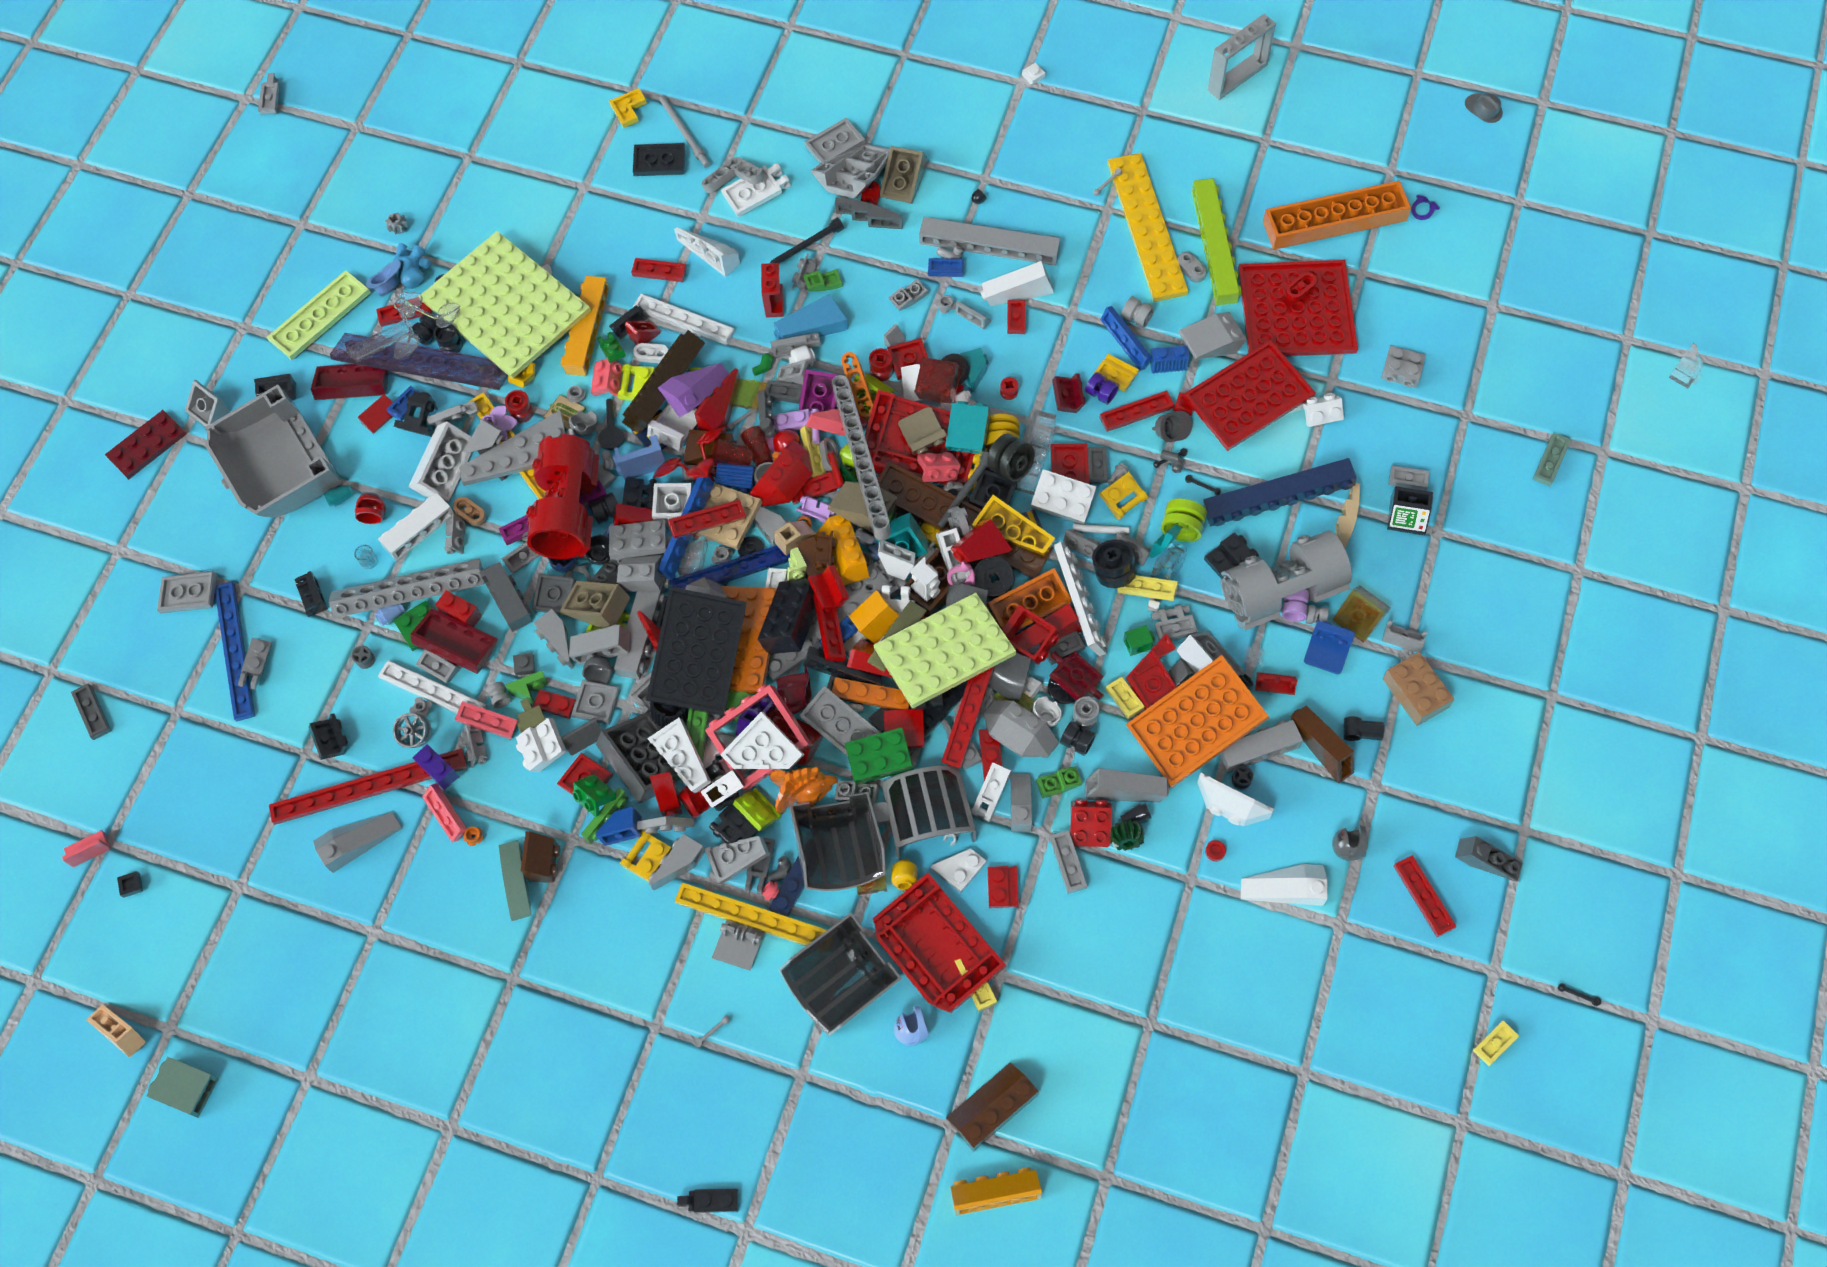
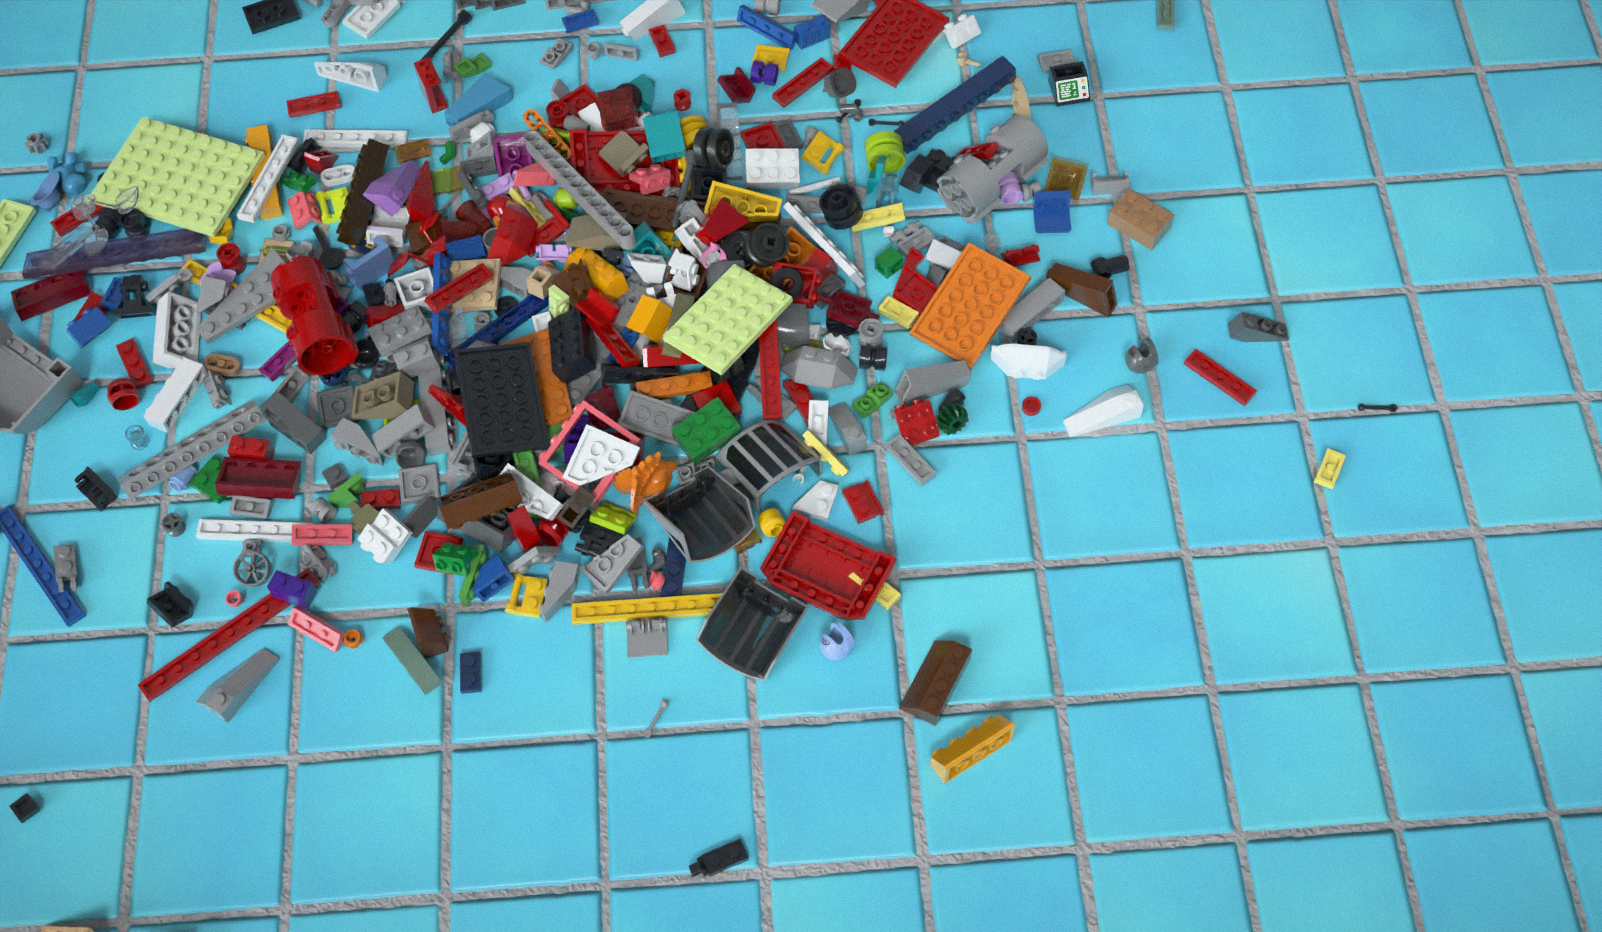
camera: 25 degrees left, 5 degrees down
(367, 429) = (88, 326): none -> blue brick
(383, 755) = (230, 601): none -> coral hinge
(394, 480) = (134, 363): none -> red plate
(563, 913) = (470, 672): none -> dark blue plate
(583, 335) = (268, 178): none -> white tile
(634, 747) = (479, 500): none -> reddish brown slope
(645, 498) = (390, 290): none -> light grey pin
(730, 352) = (413, 151): none -> clear orange plate
(893, 380) = (573, 122): none -> light grey cone
(986, 824) = (825, 453): none -> light yellow plate
(1028, 583) = (766, 245): none -> pearl dark grey wheel
(1031, 632) = (788, 273): none -> black tyre
(1207, 555) = (917, 174): none -> black slope
(1277, 554) = (980, 151): none -> red plate
(1312, 444) = (962, 60): none -> tan hand

